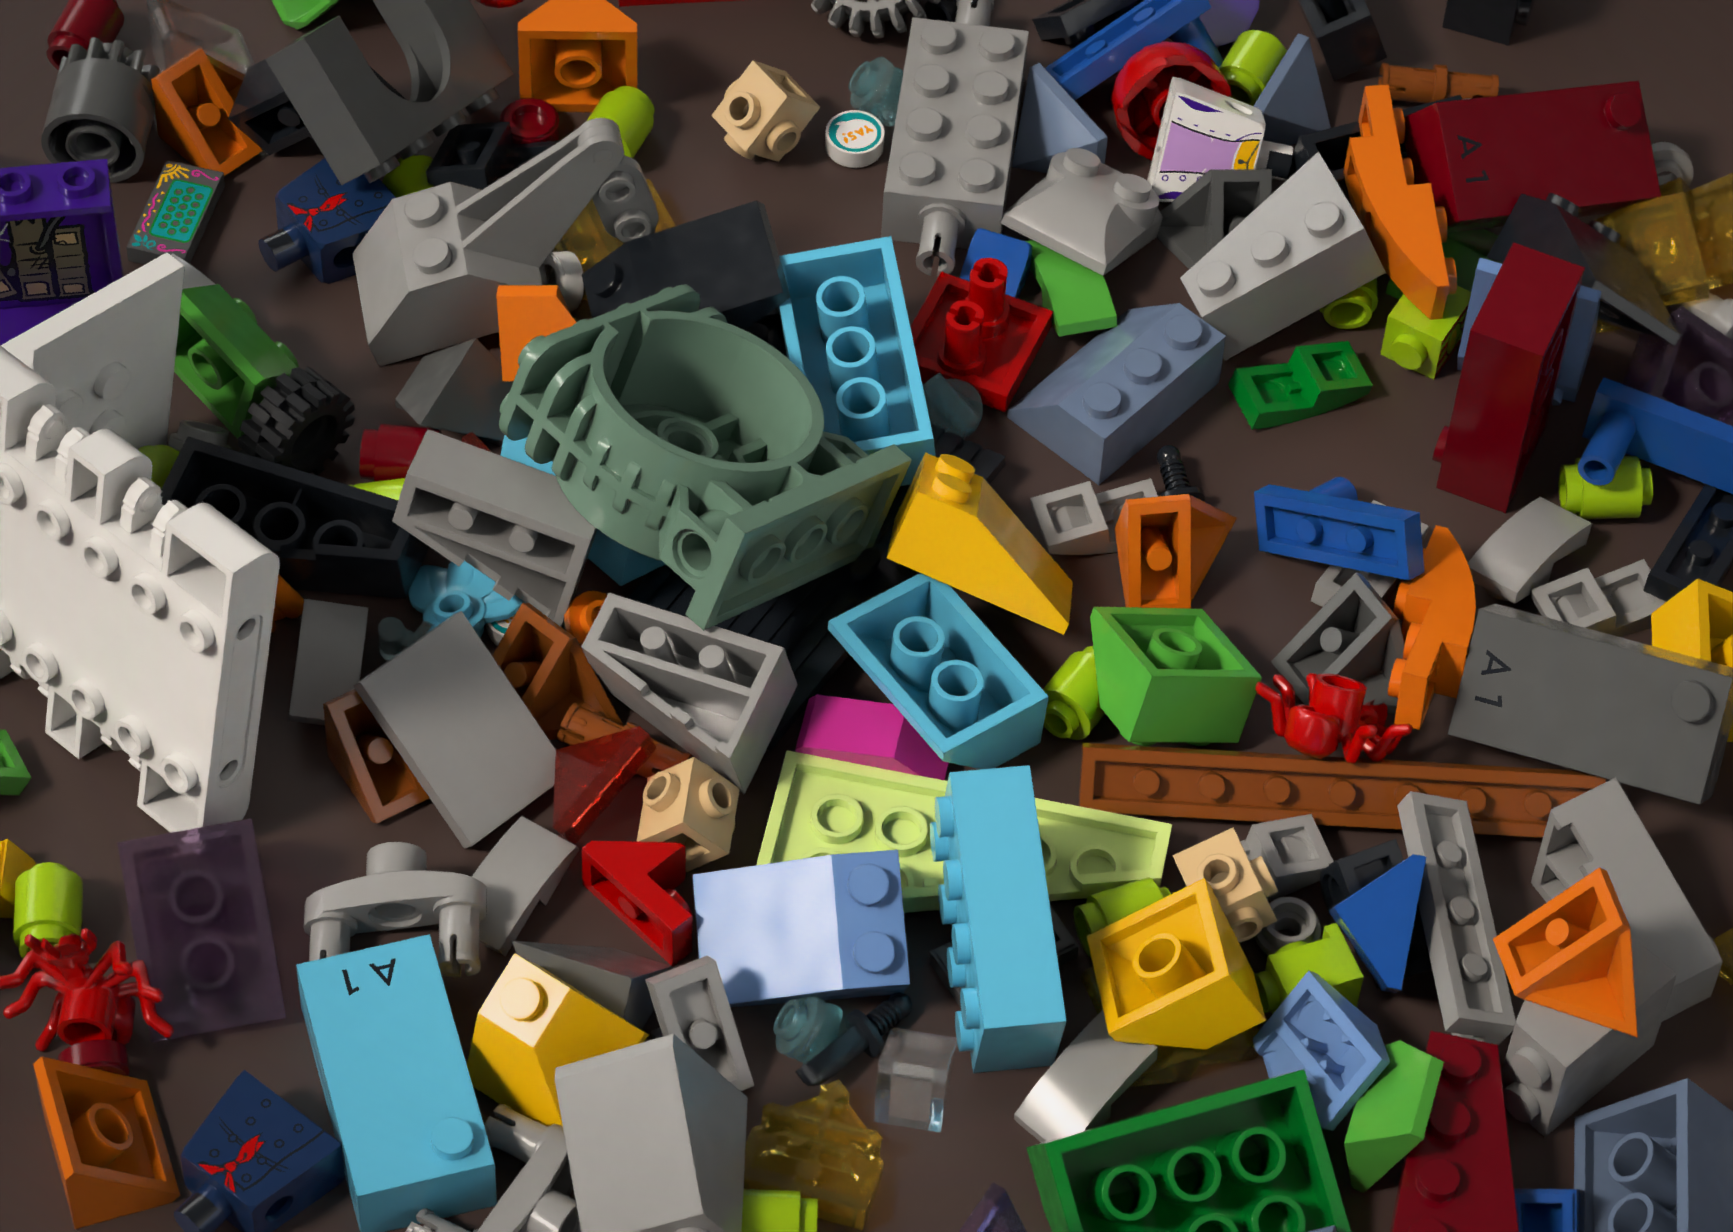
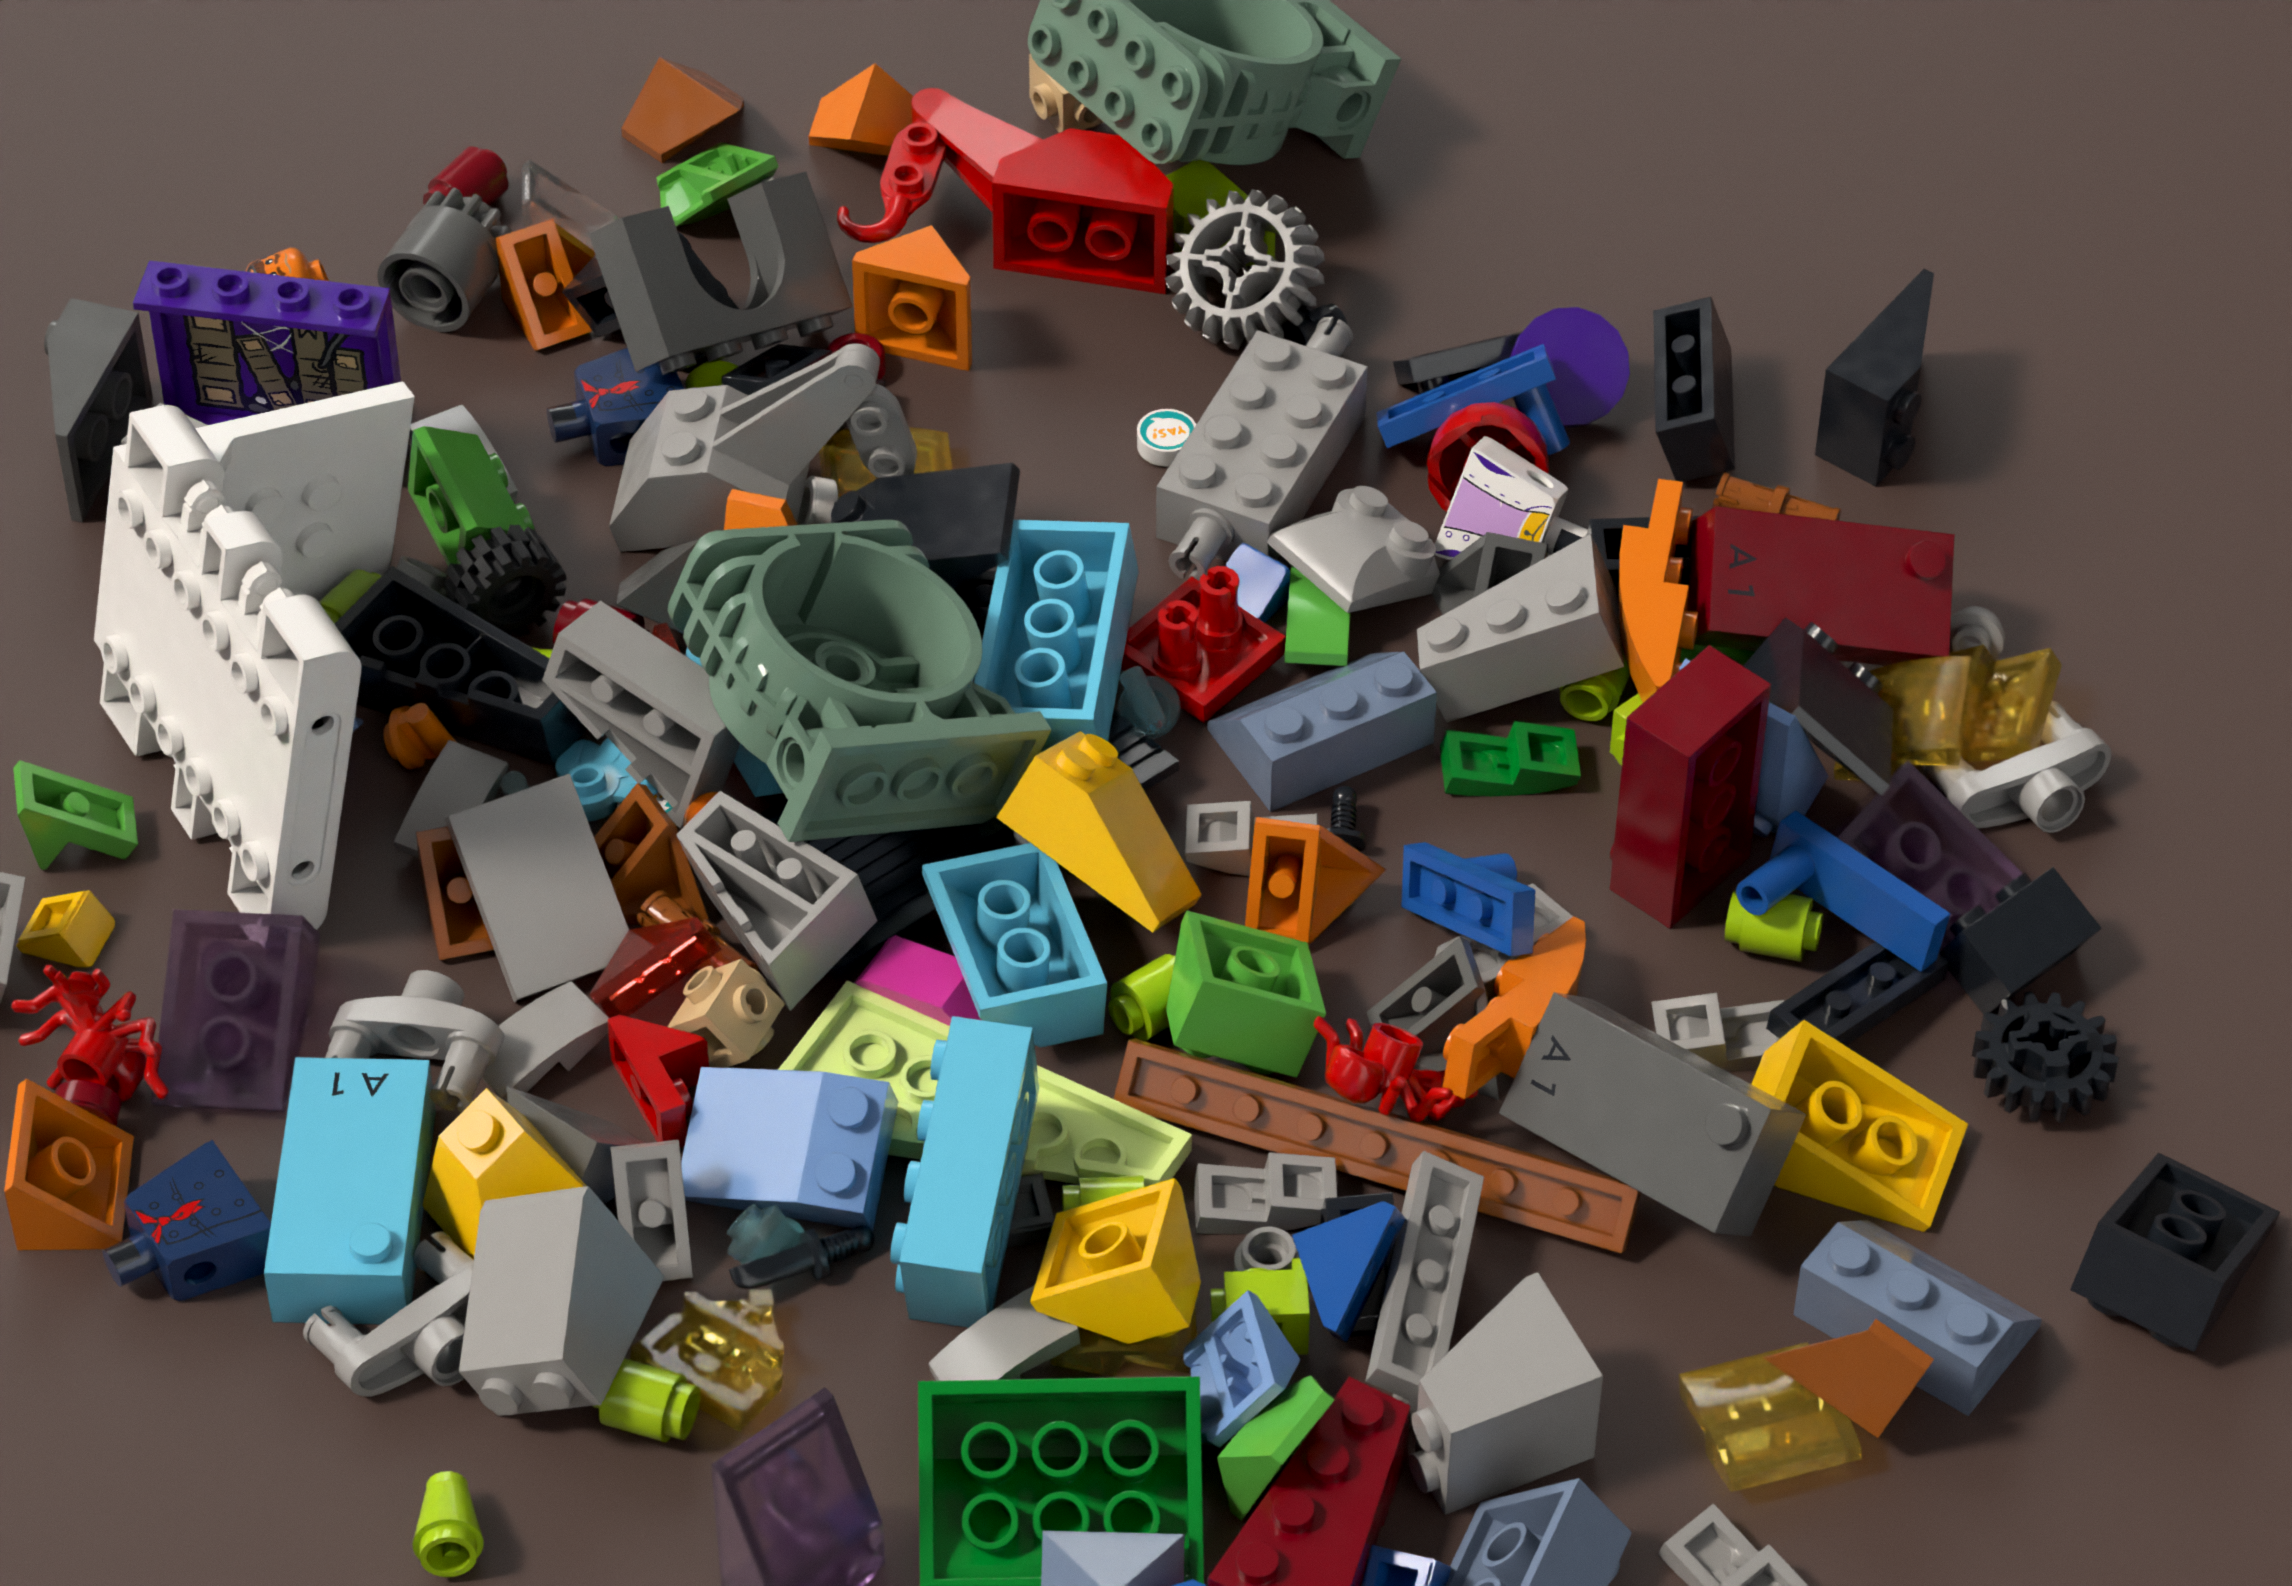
camera: 20 degrees right, 5 degrees down
(47, 904) = (106, 946): lime brick -> none
(176, 213) = (485, 371): tile -> none
(631, 112) = (934, 378): lime brick -> none
(764, 112) = (1080, 391): tan brick -> none
(877, 89) = (1200, 389): clear light blue plate -> none
(914, 1079) = (840, 1305): clear slope -> none
(1052, 124) = (1364, 460): sand blue slope -> none
(1235, 880) = (1222, 1204): tan brick -> none
(1251, 64) = (1589, 453): lime brick -> none
(1293, 97) = (1615, 484): sand blue slope -> none
(1526, 548) = (1663, 961): light grey slope -> none
(1575, 955) = (1492, 1329): orange slope -> none
(1607, 833) = (1605, 1290): light grey wedge -> none

